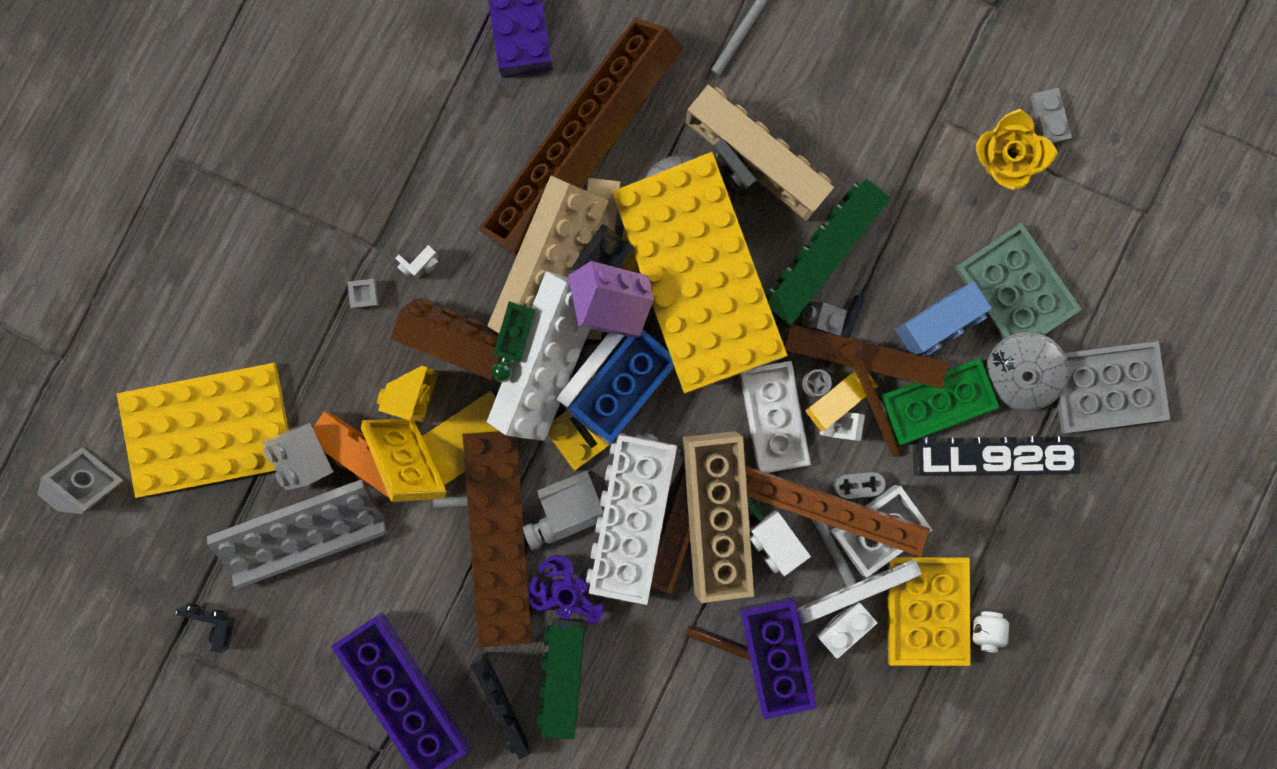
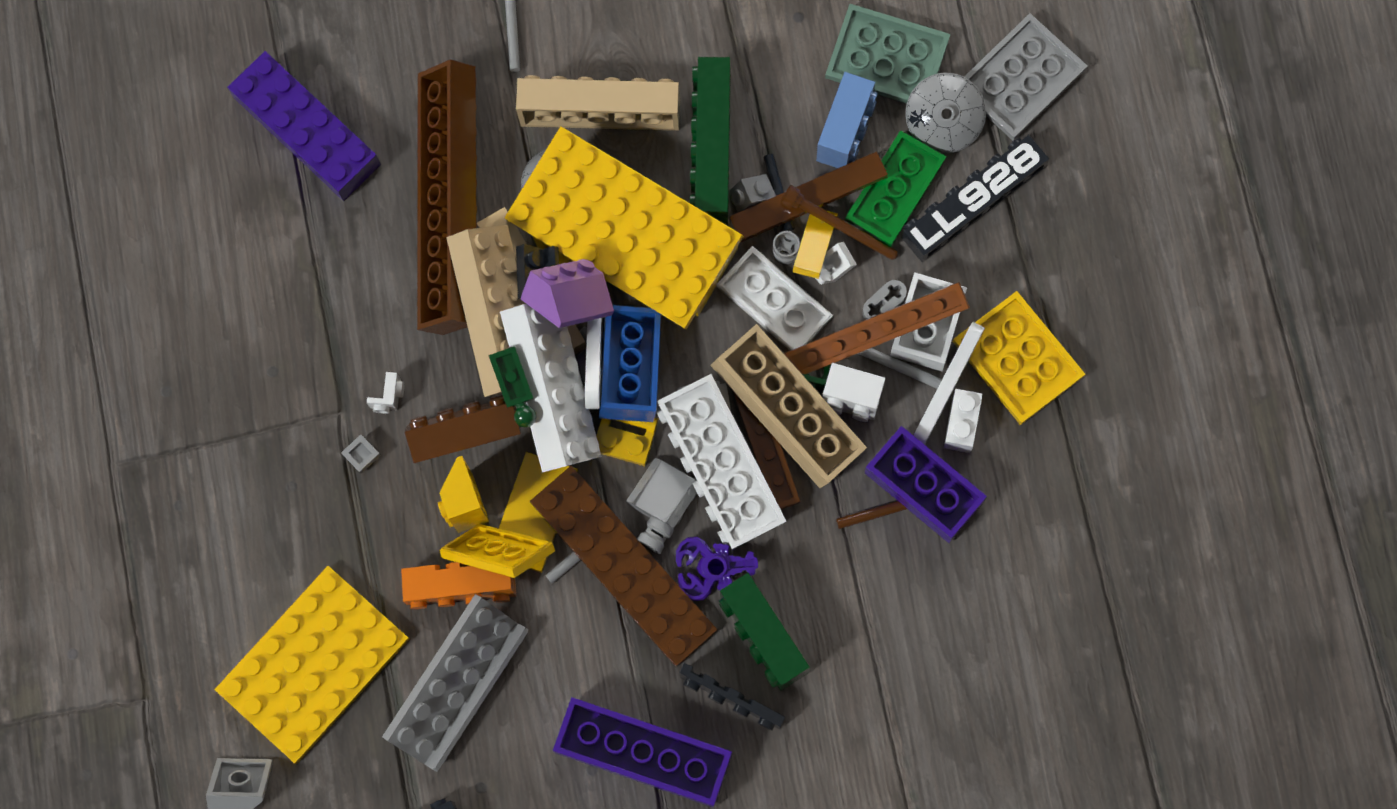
camera: 25 degrees left, 10 degrees down
(297, 457) = (407, 618): light grey brick -> none
(739, 176) = (592, 130): dark grey plate -> none
(990, 631) = (1080, 335): white head -> none

